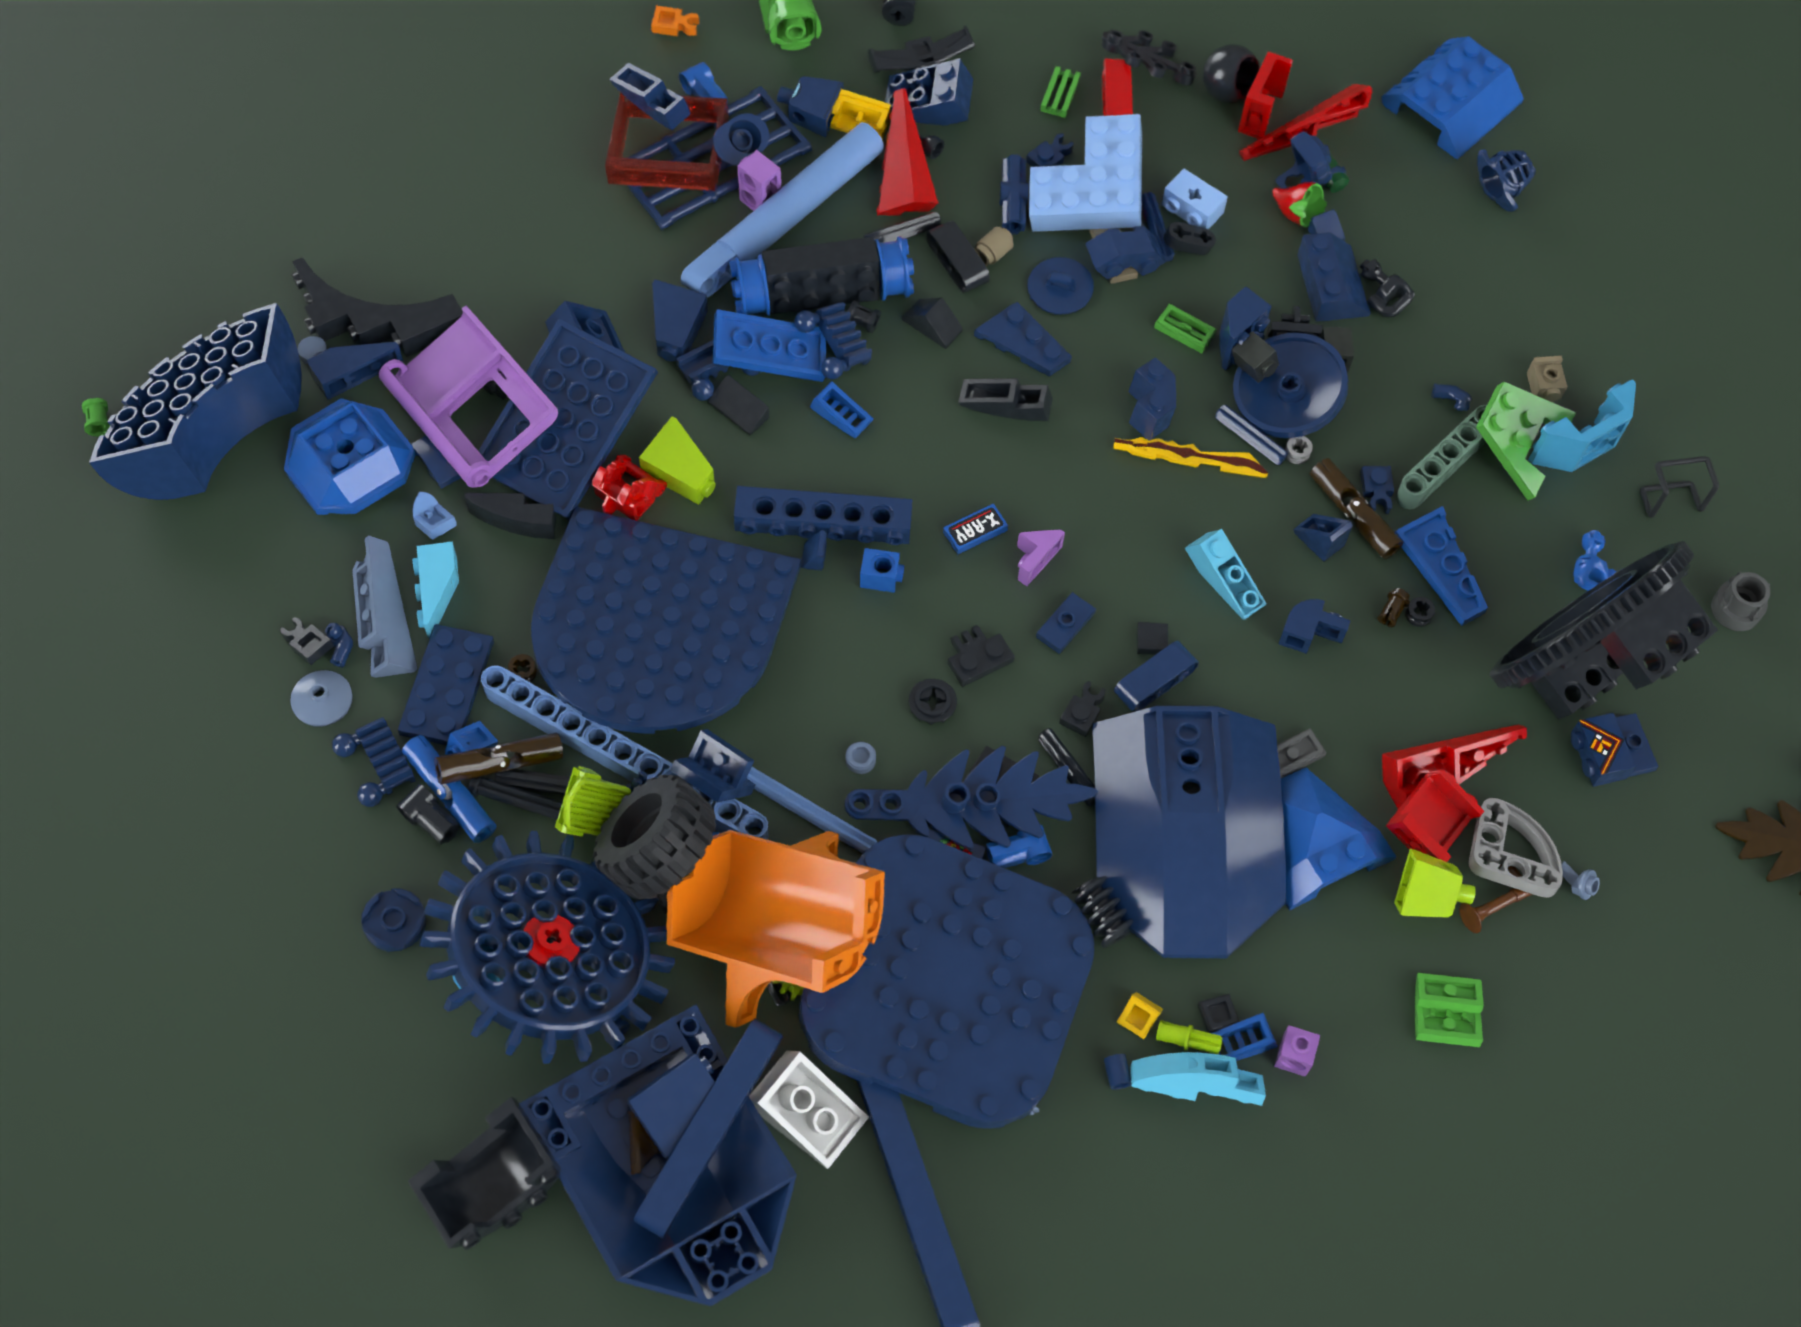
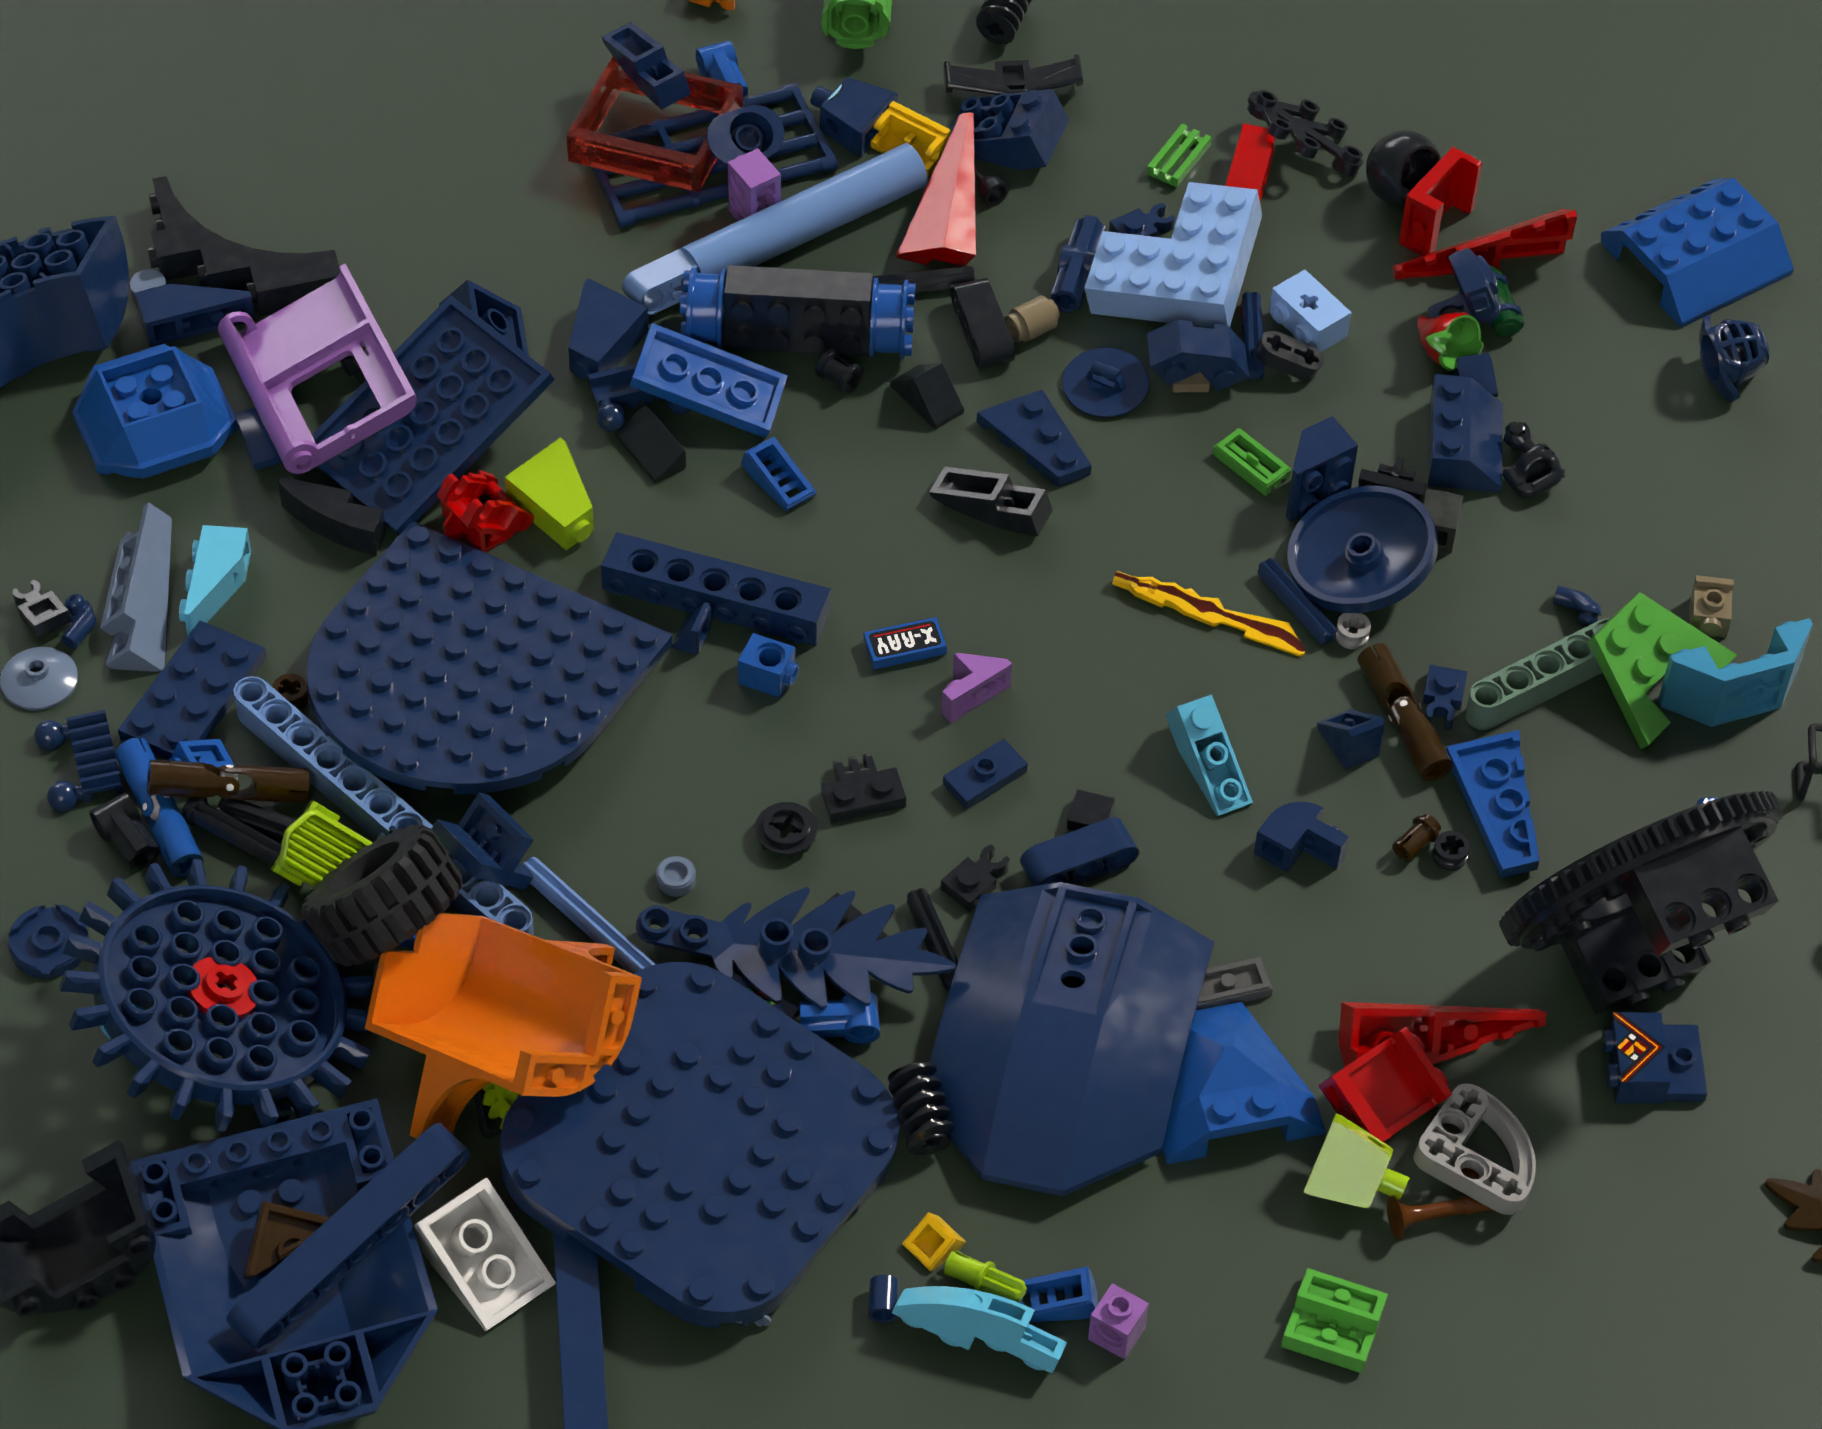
camera: 15 degrees right, 10 degrees down
(431, 516) = (232, 498): medium blue plate -> none
(672, 1101) = (311, 1192): dark blue slope -> none
(840, 335) = (802, 387): dark blue gear -> none
(1156, 395) = (1177, 532): dark blue brick -> none
(1218, 1013) = (1034, 1258): black tile -> none
(1256, 357) = (1324, 505): pearl dark grey brick -> none
(1583, 885) = (1561, 1211): sand blue plate -> none

